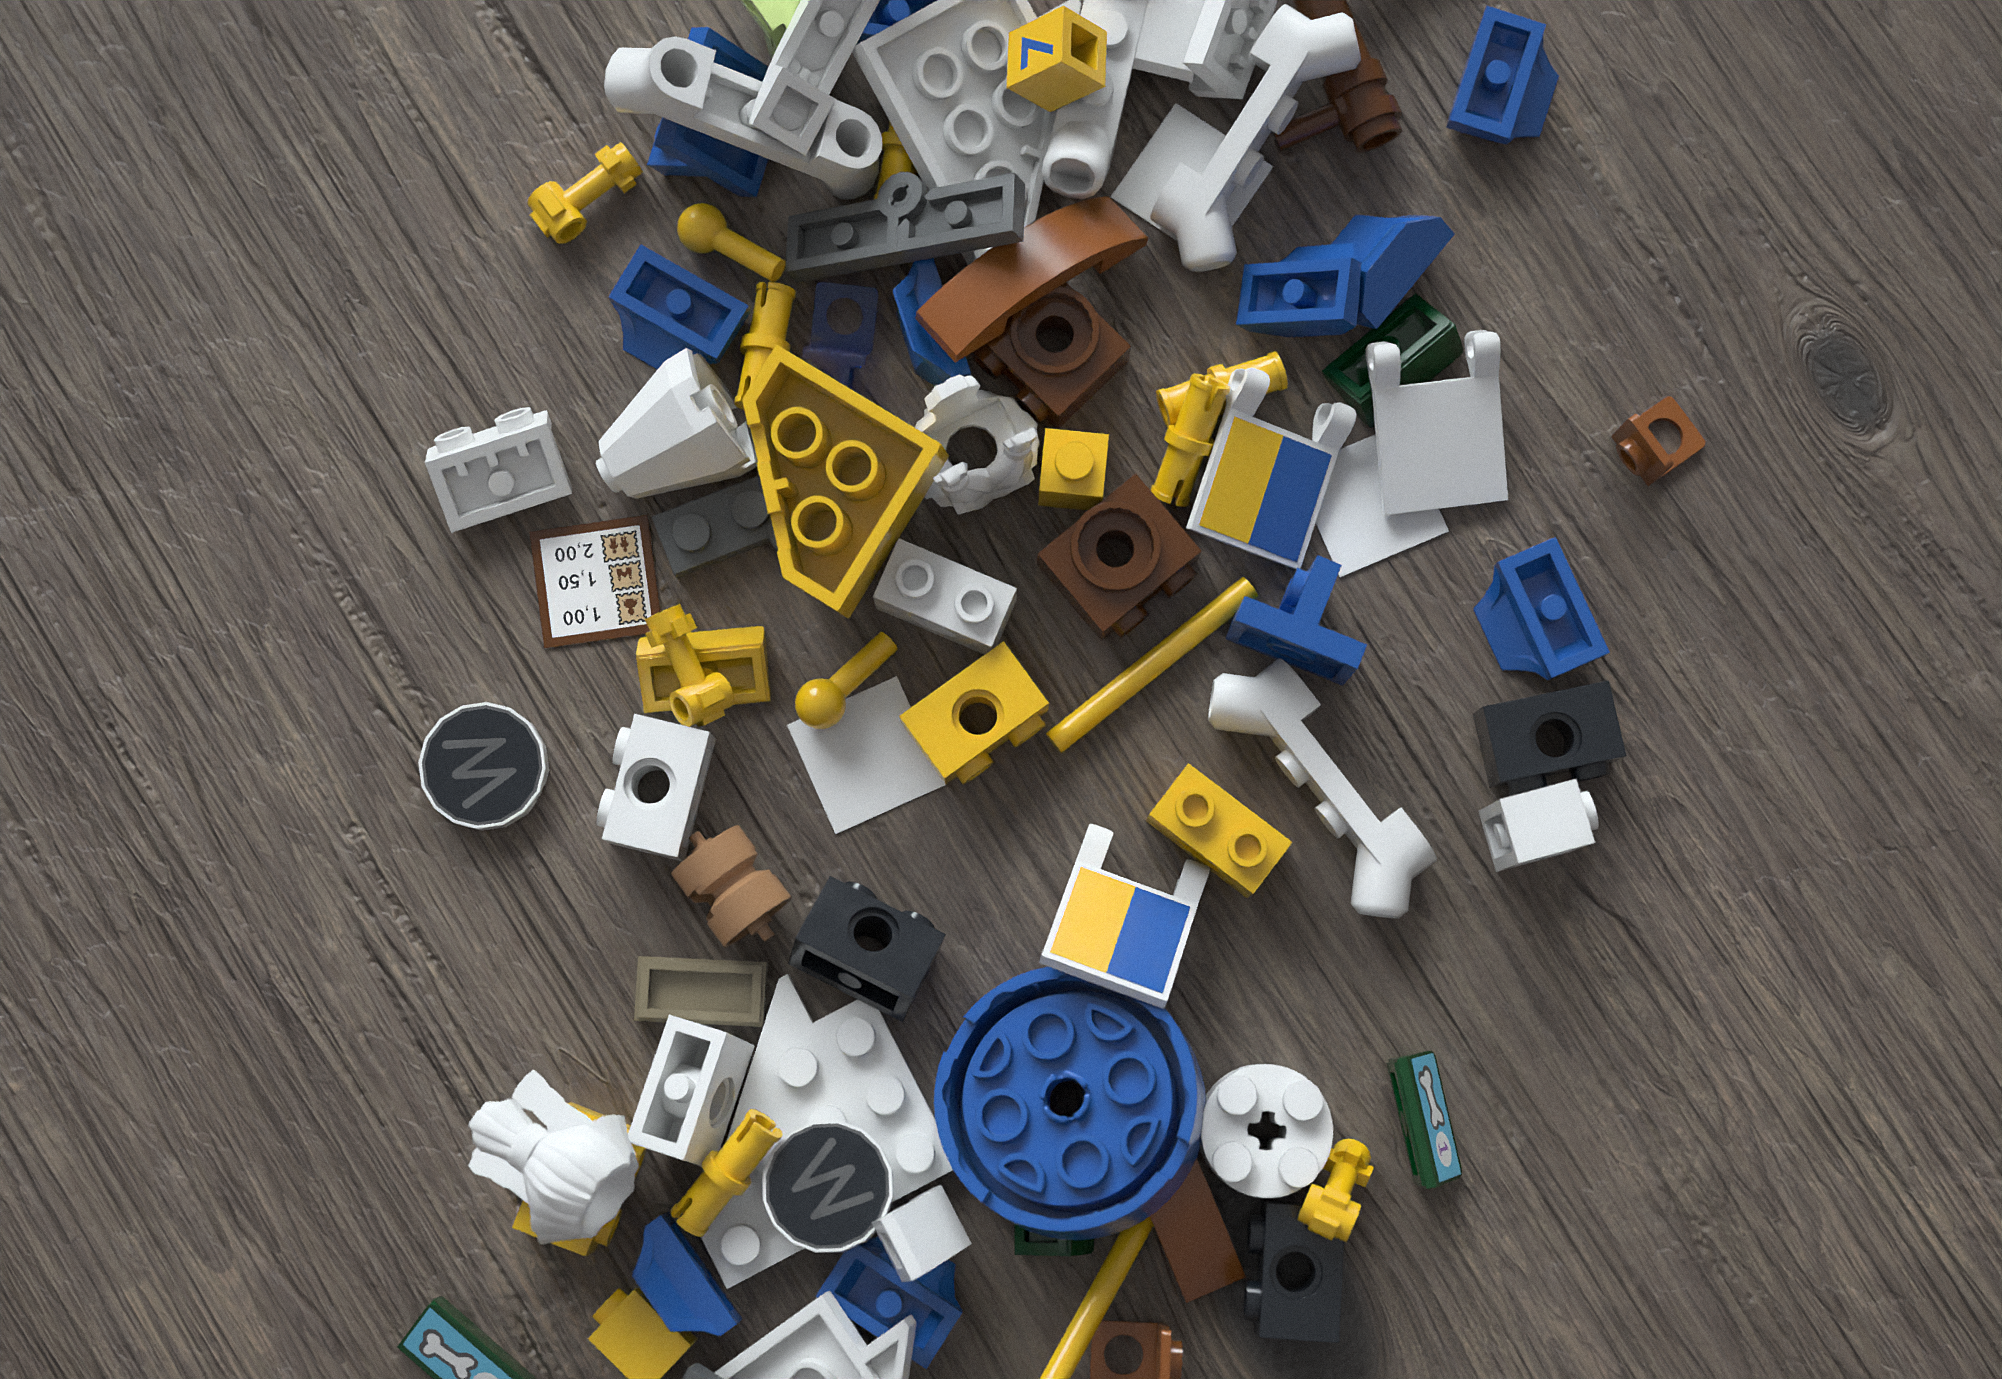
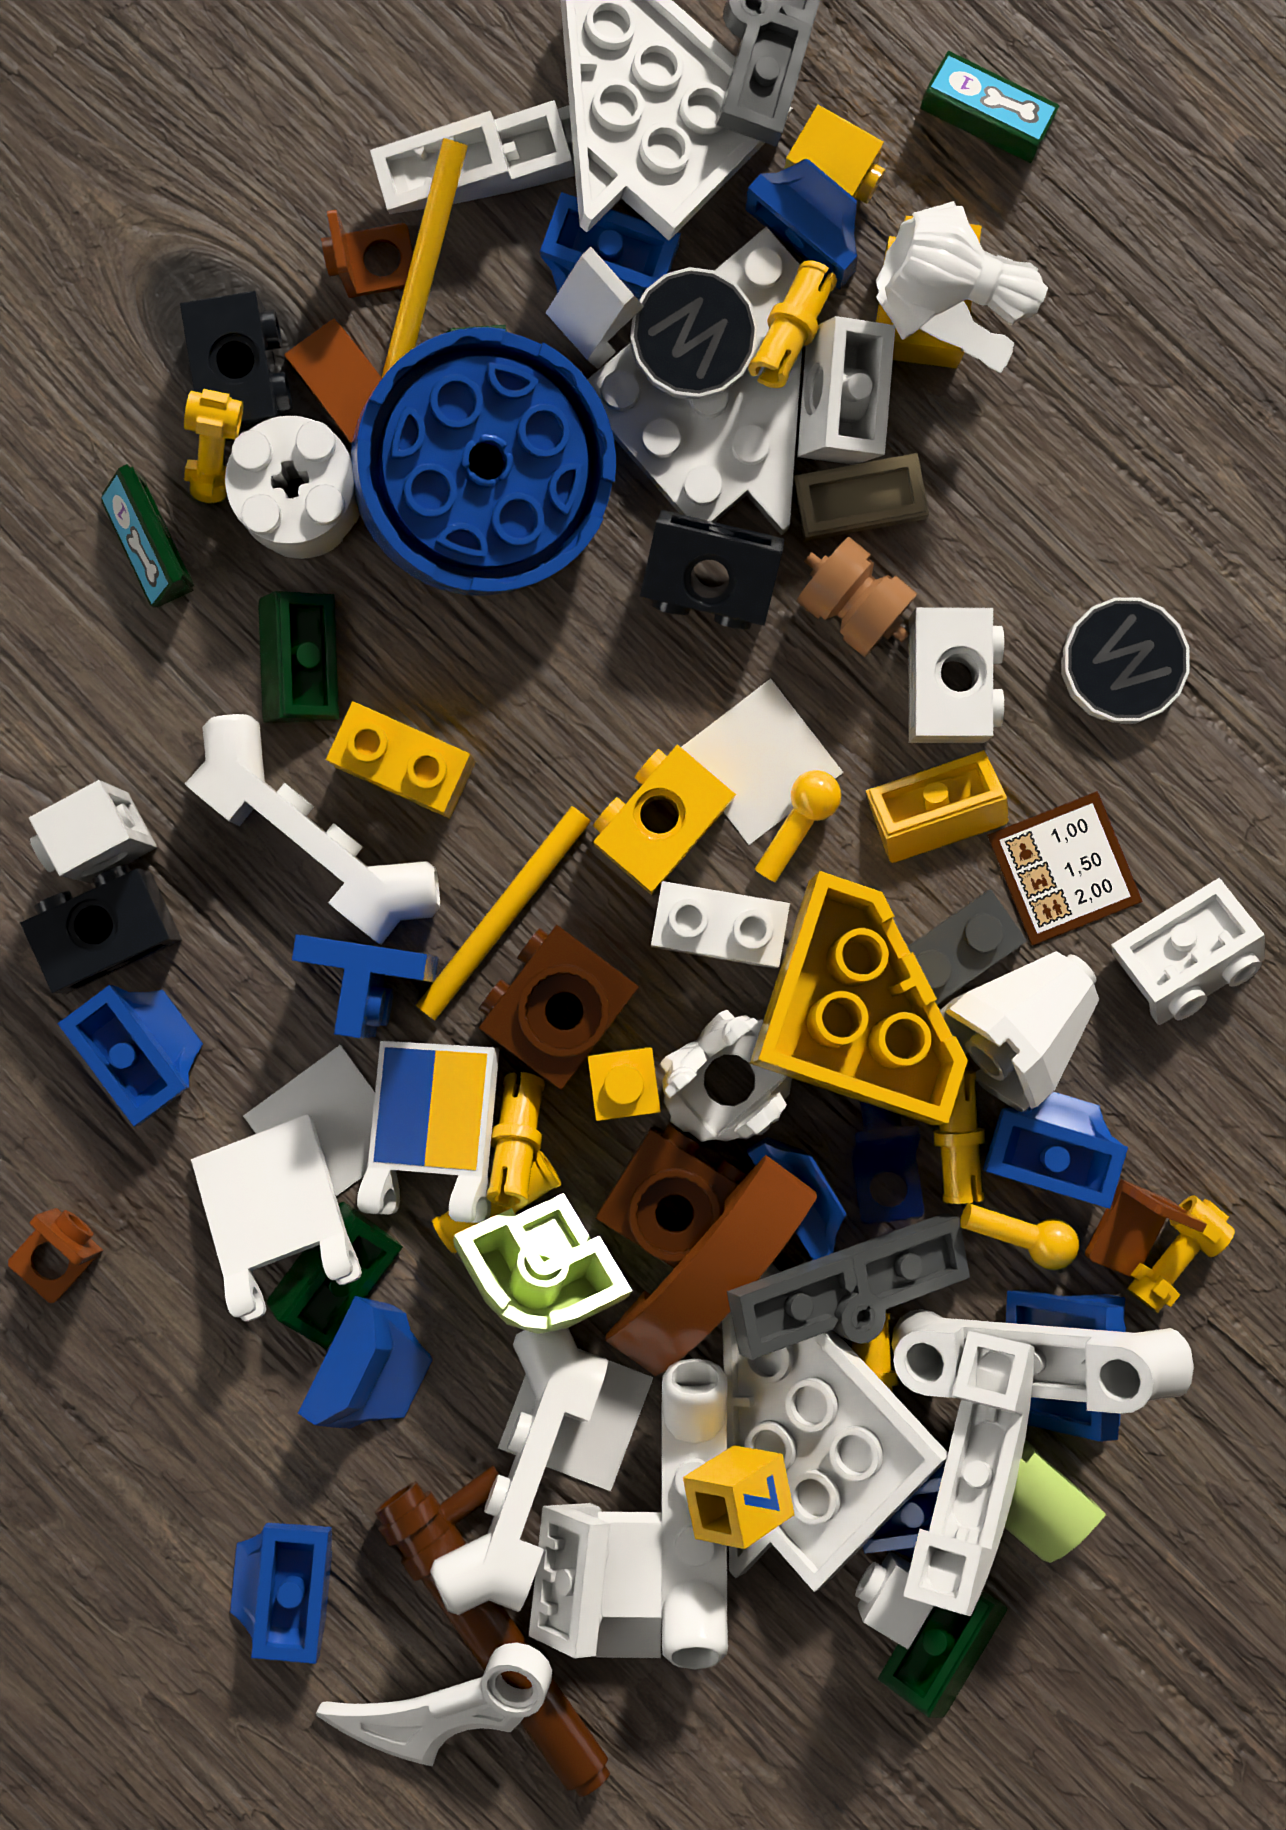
camera: 165 degrees right, 5 degrees up
(621, 228) = (1132, 1227): none -> dark orange bracket
(701, 696) = (932, 770): yellow bar -> none
(1121, 929) = (472, 637): flag -> none
(1192, 312) = (541, 1267): none -> brick
(1298, 963) = (298, 657): none -> dark green slope
(1303, 294) = (433, 1323): blue slope -> none

